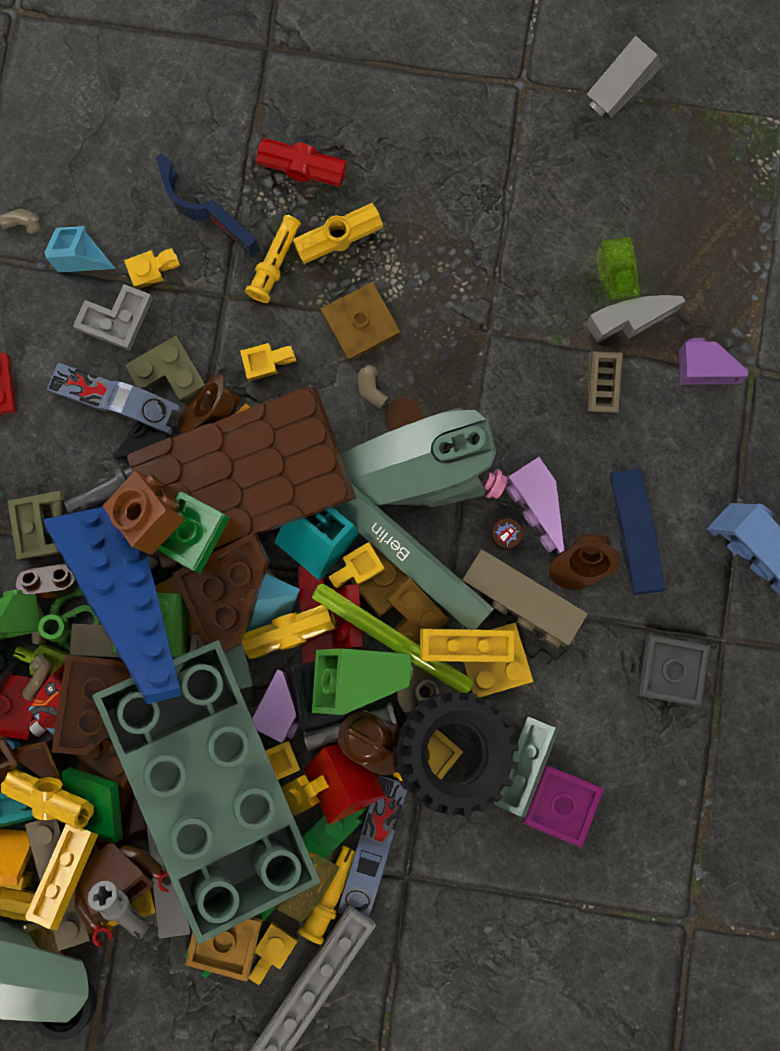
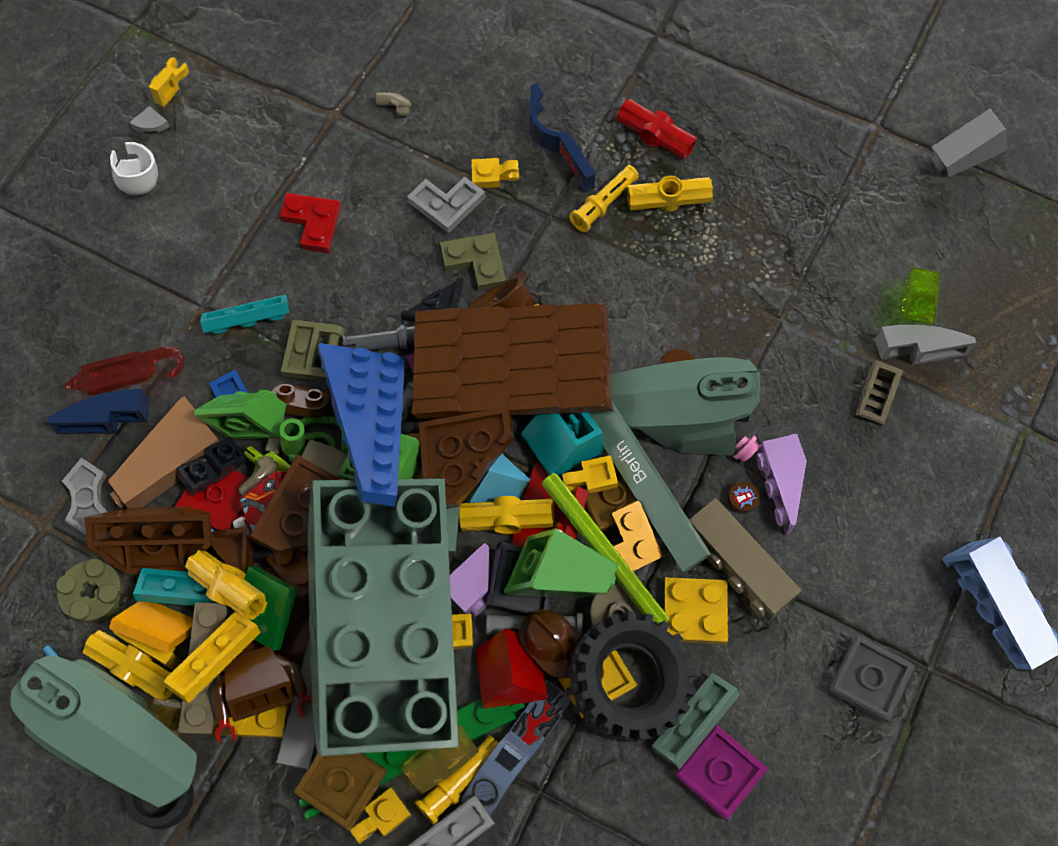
camera: 15 degrees right, 15 degrees down
(74, 250) = (431, 140): medium azure slope -> none
(112, 396) = (426, 263): piece -> none
(115, 906) = (252, 698): light grey pin -> none
(144, 512) = (415, 357): dark orange brick -> none
(196, 535) = (450, 387): green plate -> none
(262, 361) = (564, 277): yellow plate -> none
(302, 794) = (469, 666): yellow plate -> none
(360, 321) = (665, 273): pearl gold plate -> none
(367, 387) = (653, 328): dark tan arm -> none
(467, 645) = (674, 578): yellow plate -> none
(584, 562) = (811, 545): reddish brown piece -> none
(637, 532) = (872, 535): dark blue slope -> none
(708, 364) = (984, 408): medium lavender slope -> none

